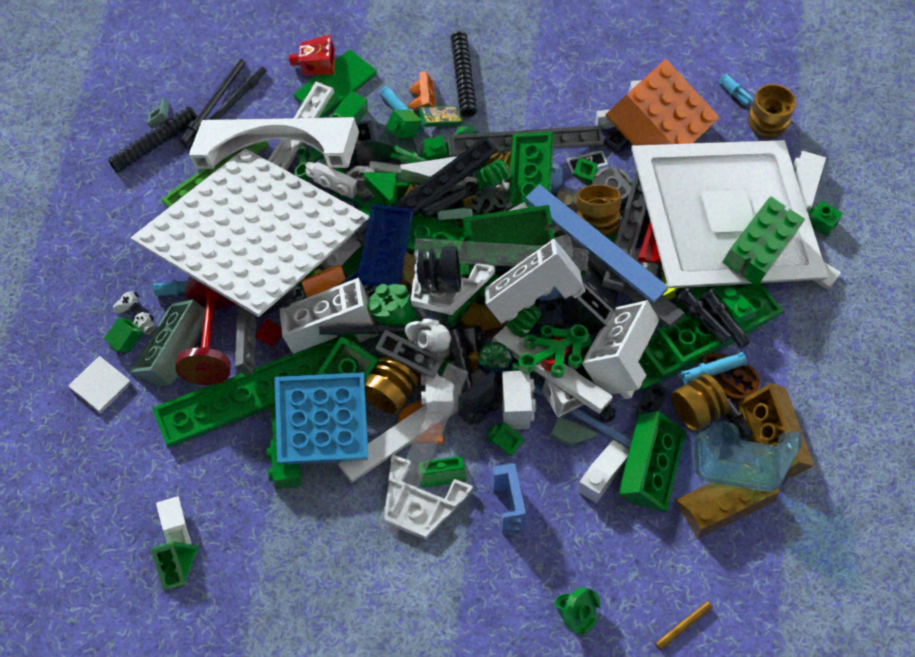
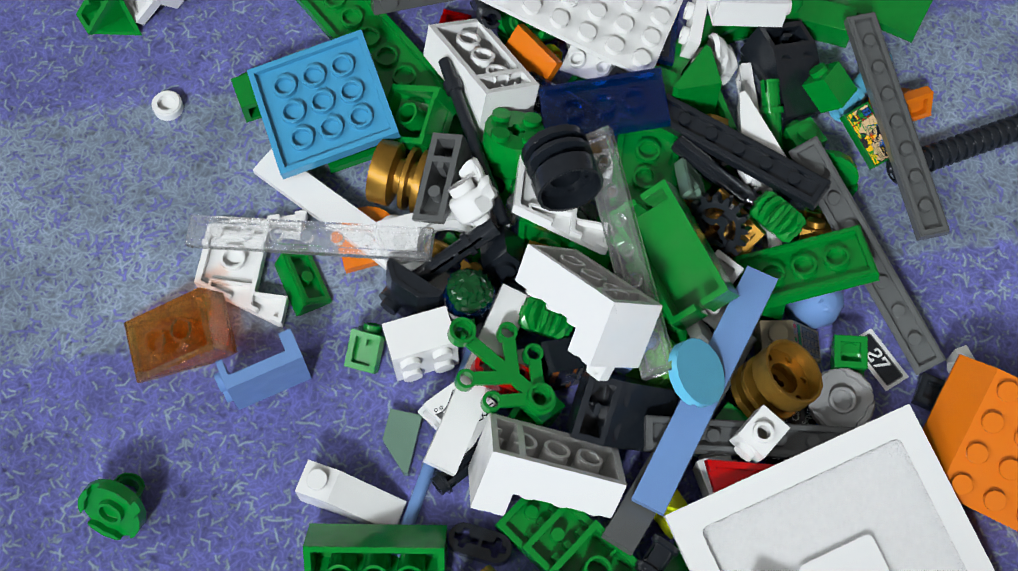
camera: 75 degrees right, 5 degrees up
(270, 536) = (167, 105): none -> white tile
(442, 97) = (896, 127): none -> dark grey tile
(464, 554) = (180, 335): none -> clear orange slope
(593, 238) = (696, 373): none -> medium azure tile
(631, 225) = (758, 435): none -> white brick

